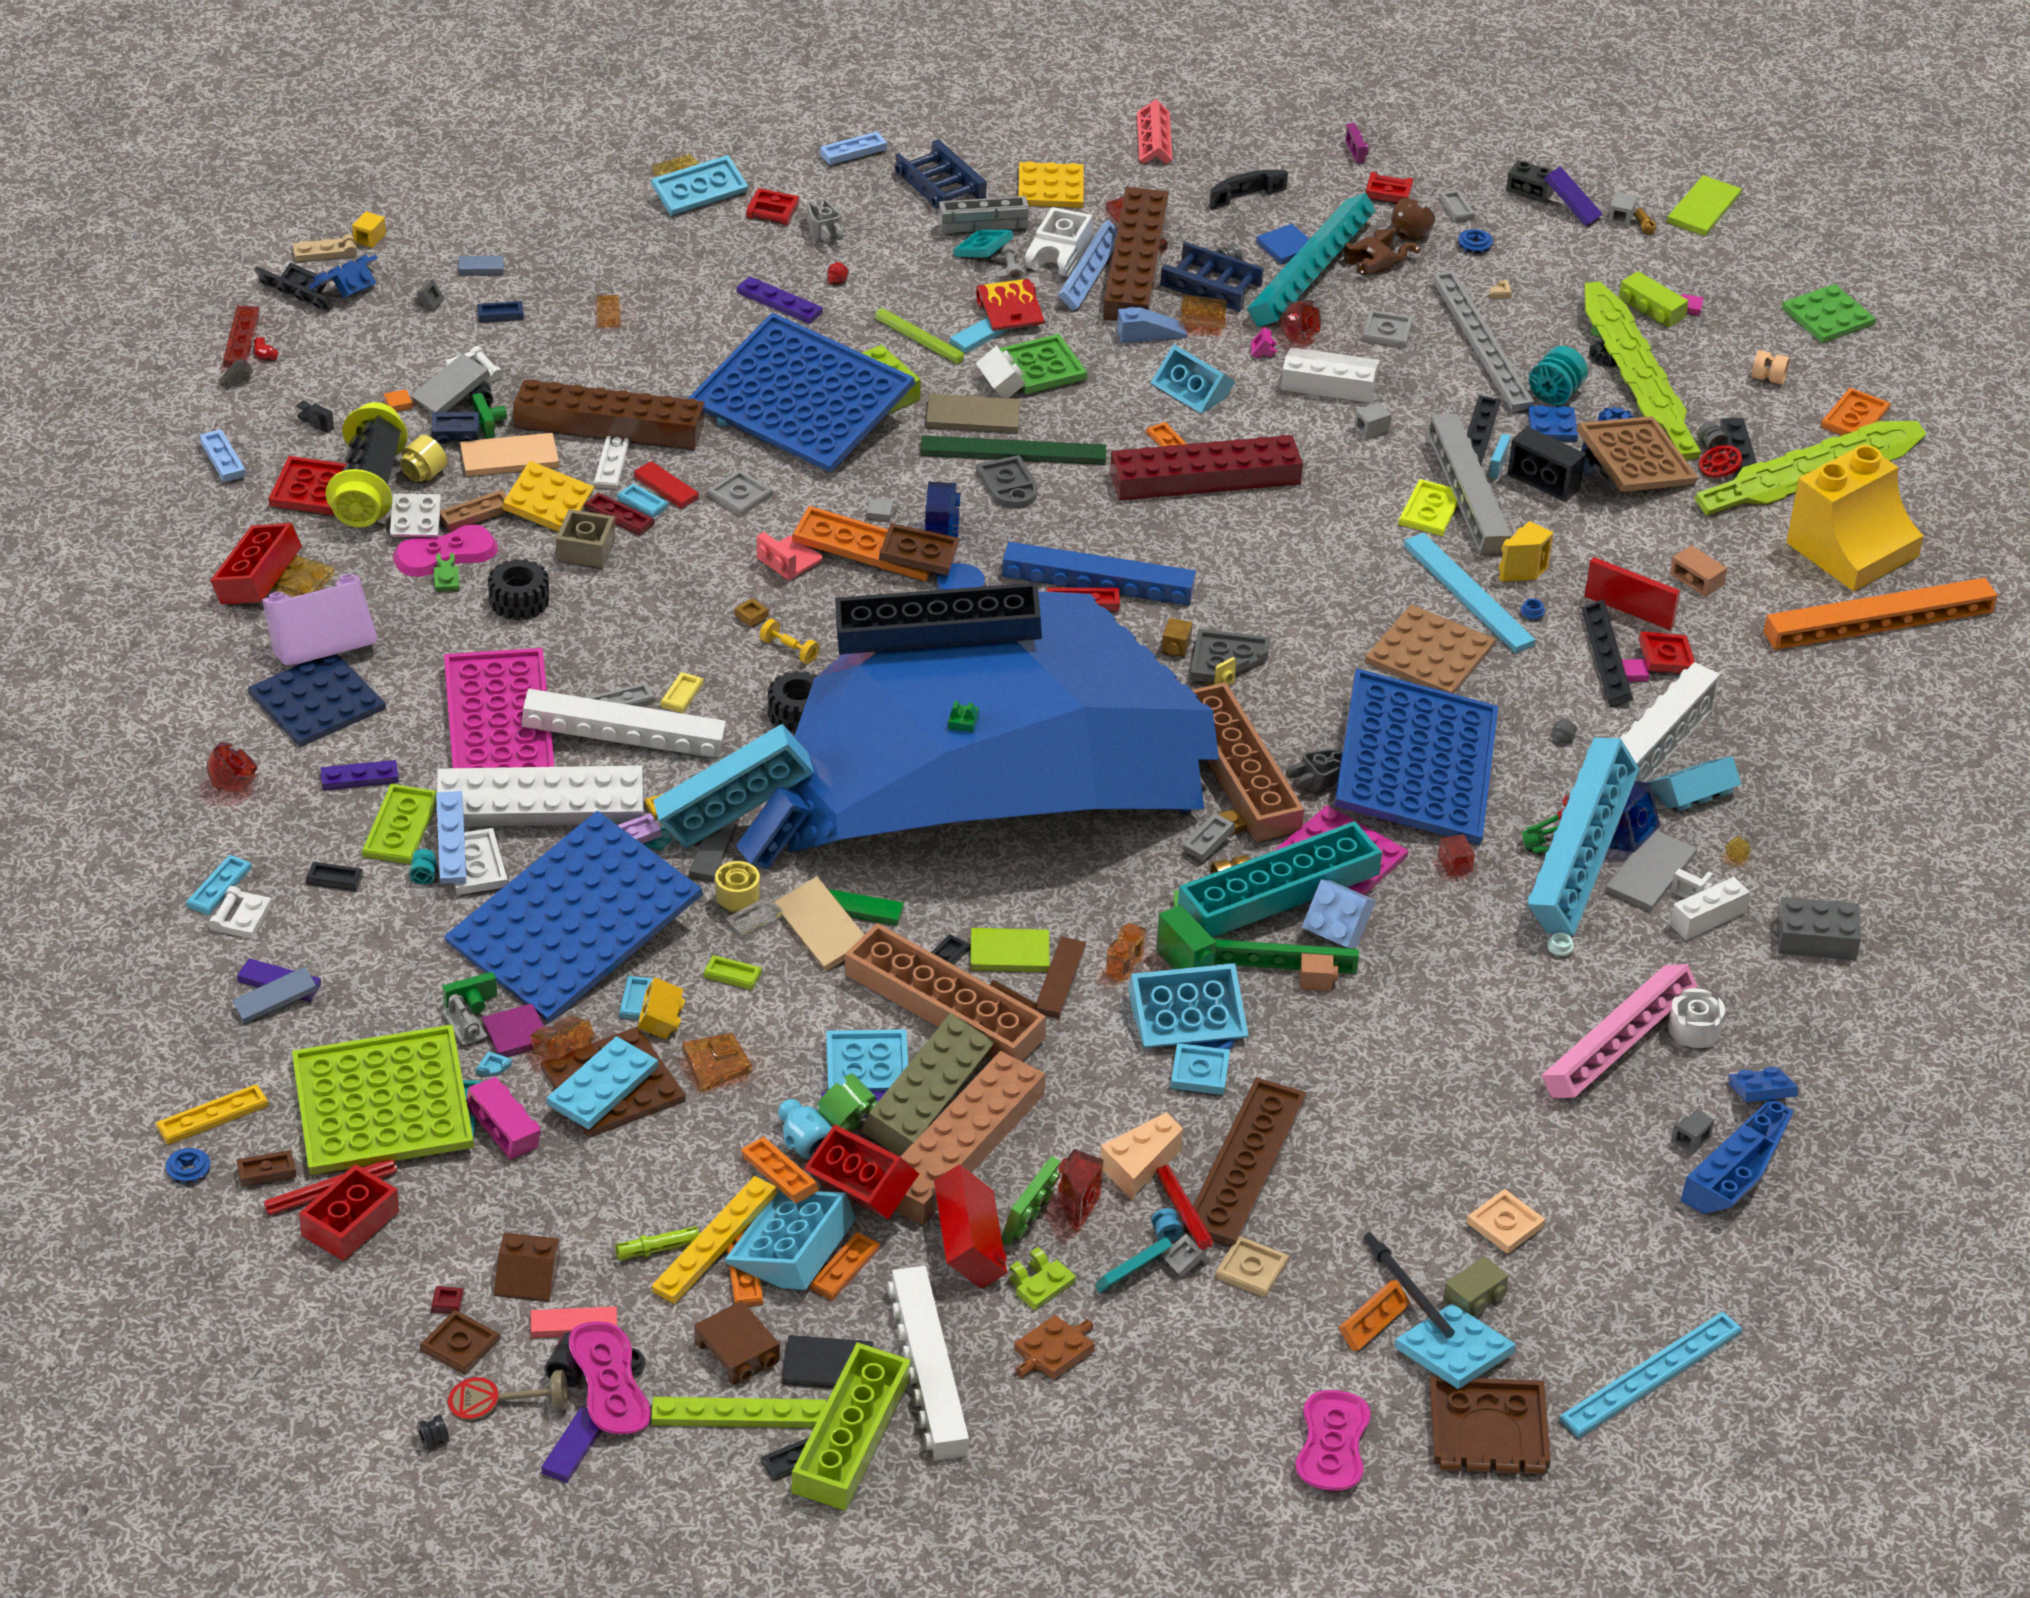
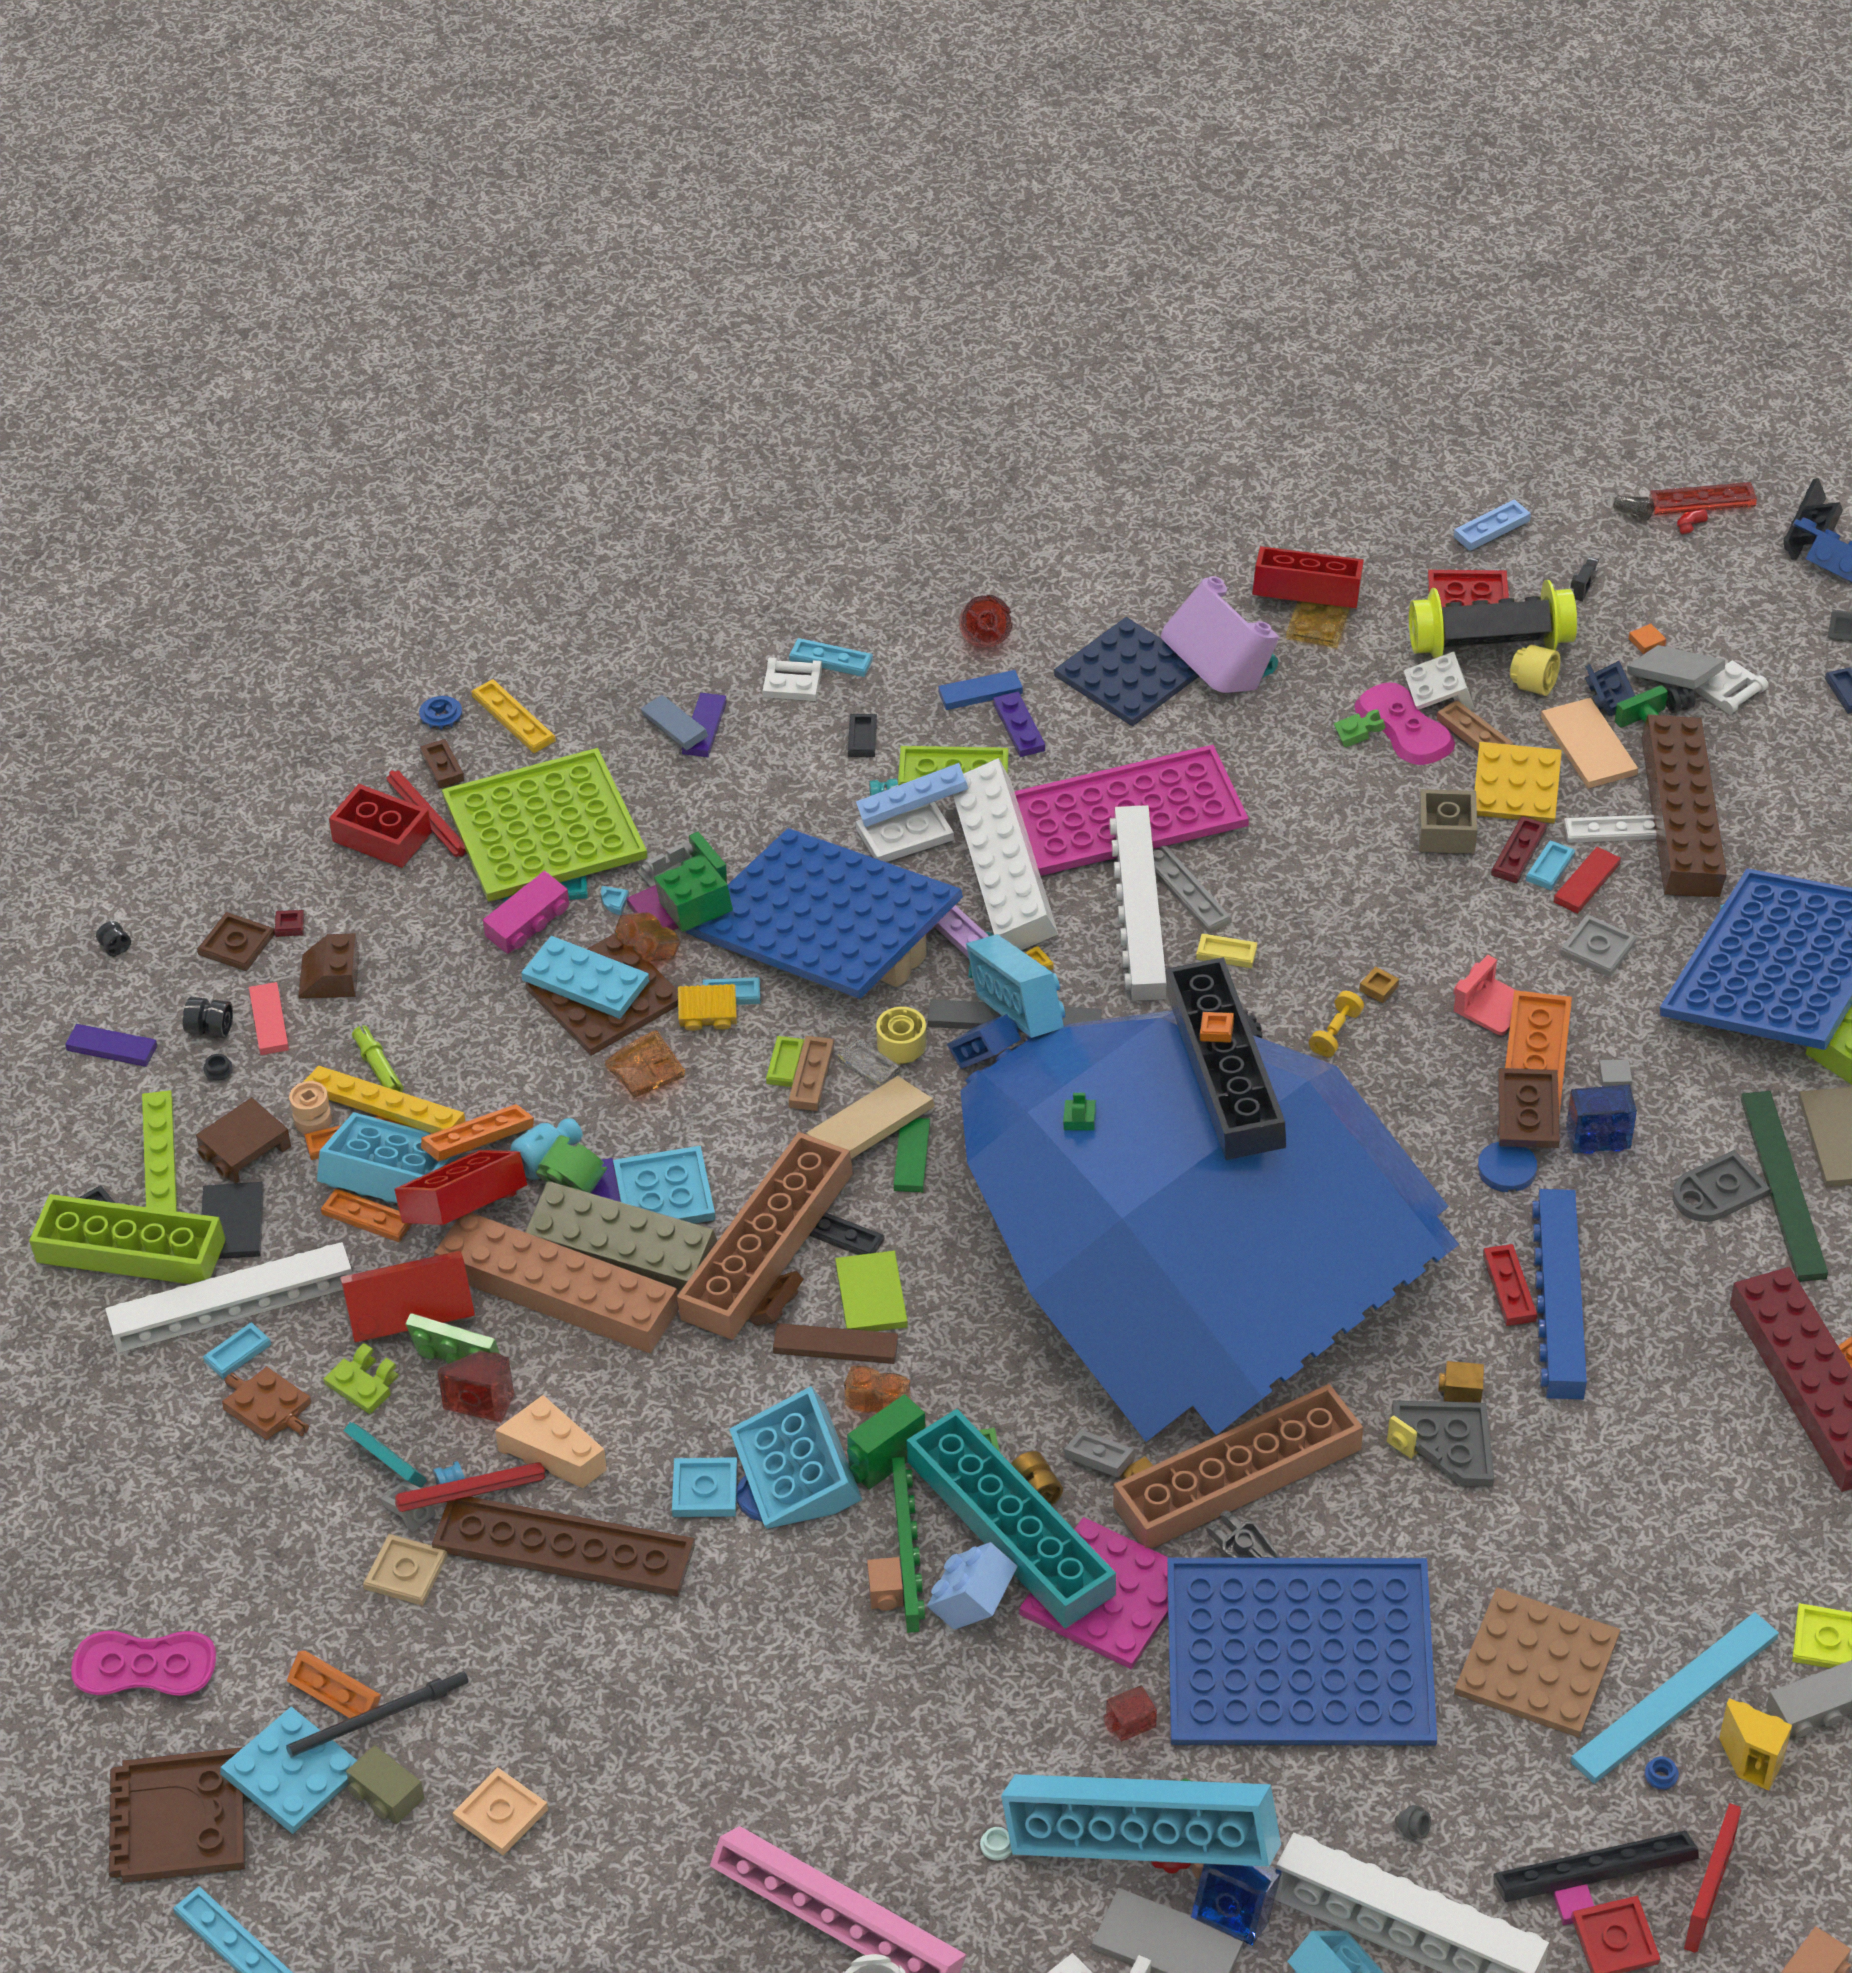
camera: 85 degrees right, 5 degrees up
(304, 793) = (979, 689): none -> blue tile
(479, 1396) = (163, 964): dark tan piece -> none
(518, 589) = (1343, 784): black tyre -> none
(529, 992) = (693, 893): none -> green brick
(613, 1395) = (156, 1056): dark pink plate -> none
(713, 1287) = (310, 1107): none -> light nougat wheel
(769, 957) = (811, 1073): none -> medium nougat plate
(921, 606) = (1216, 1027): none -> orange tile
(986, 1366) = (237, 1350): none -> medium azure tile

